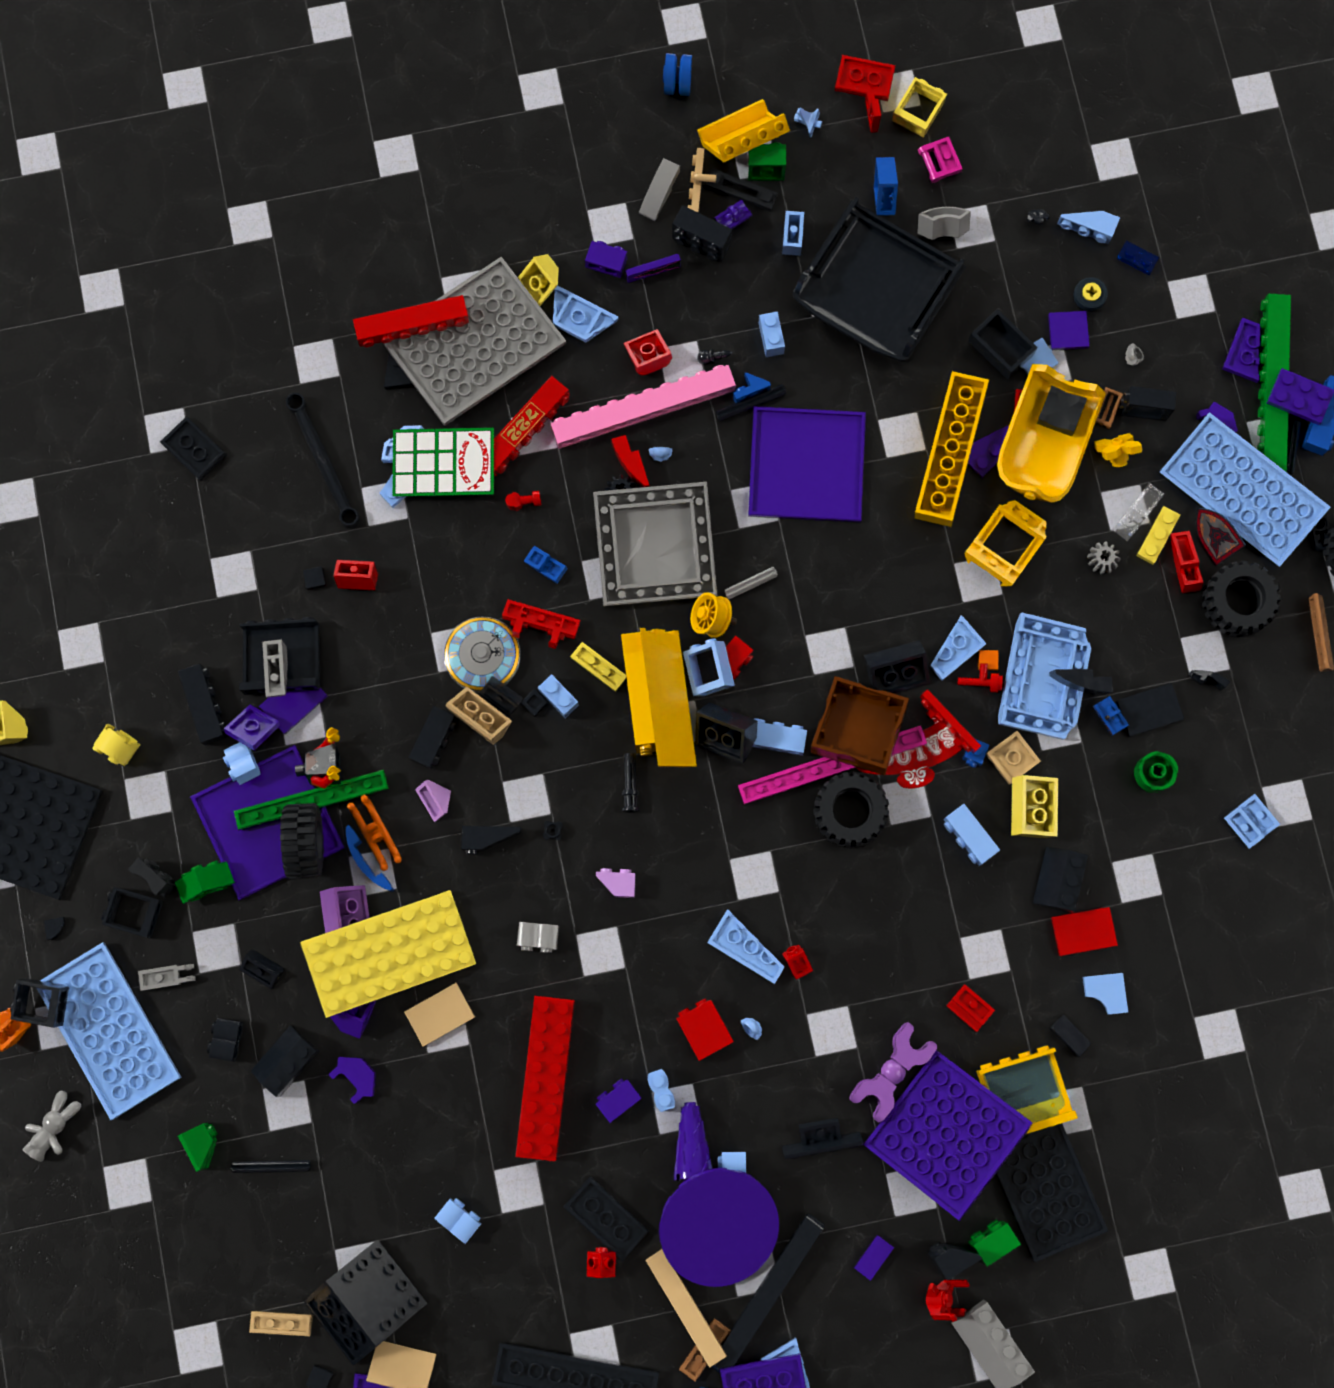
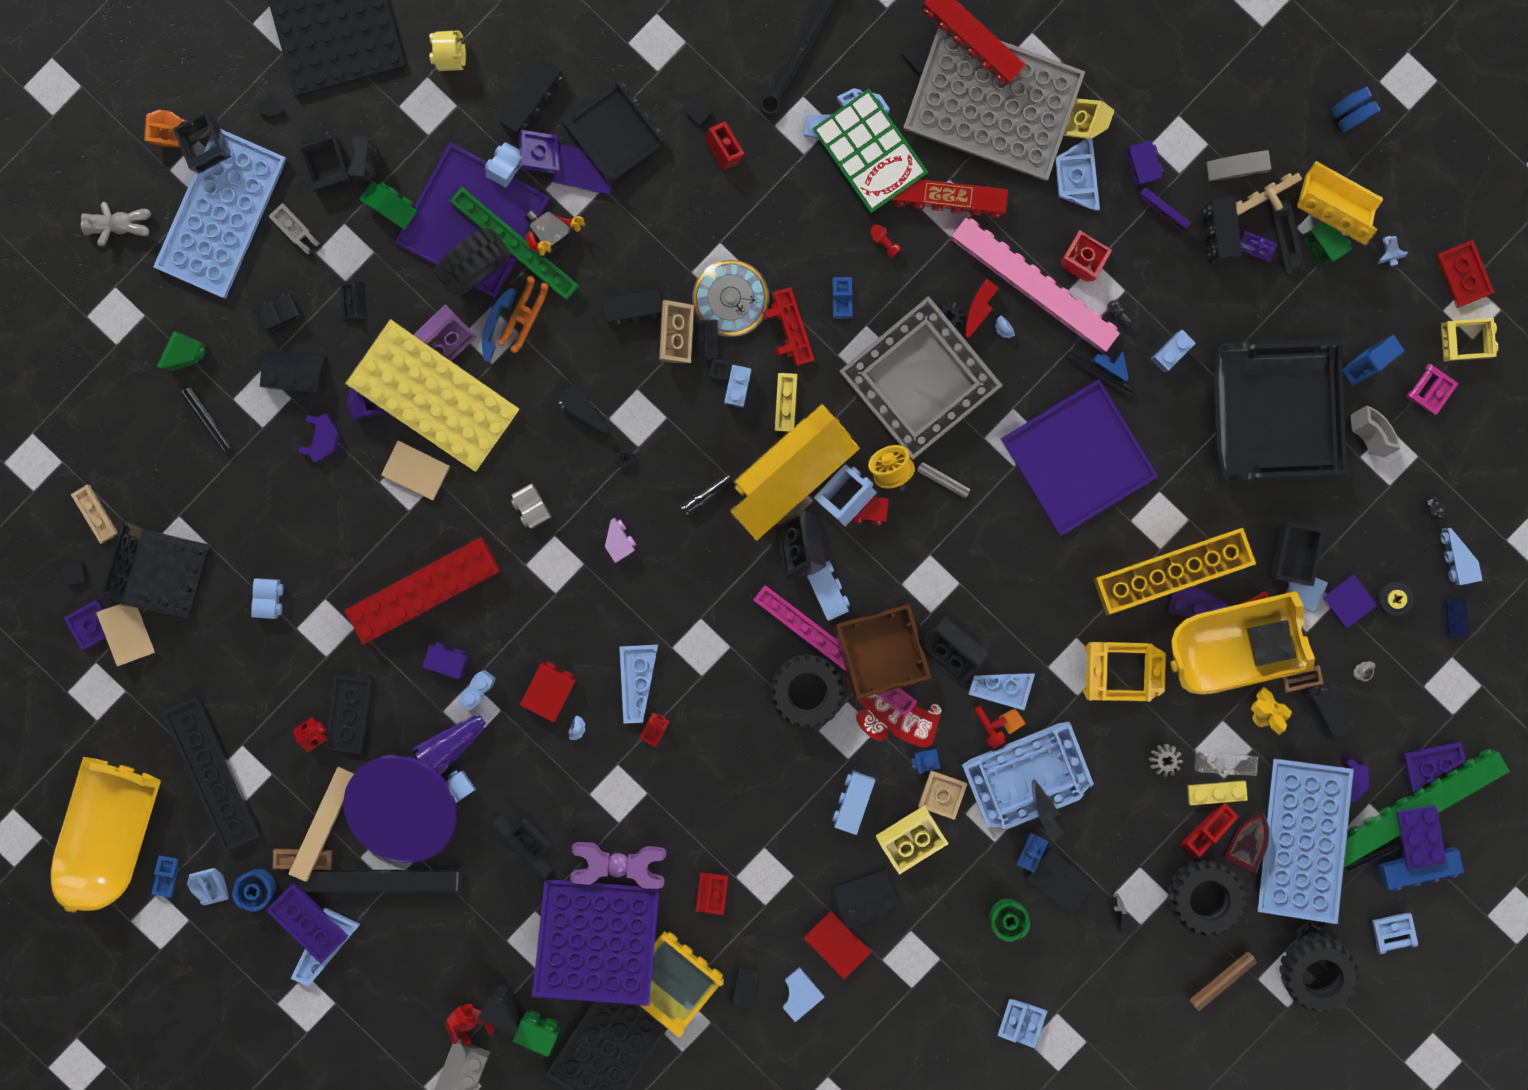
camera: 55 degrees right, 10 degrees up
(275, 668) = (598, 136): light grey slope -> none
(434, 798) = (585, 343): lavender slope -> none
(793, 233) = (1277, 308): light blue brick -> none
(873, 111) = (1437, 302): red tile -> none
(873, 1257) = (463, 945): dark purple tile -> none
(955, 729) = (932, 732): red hinge -> none

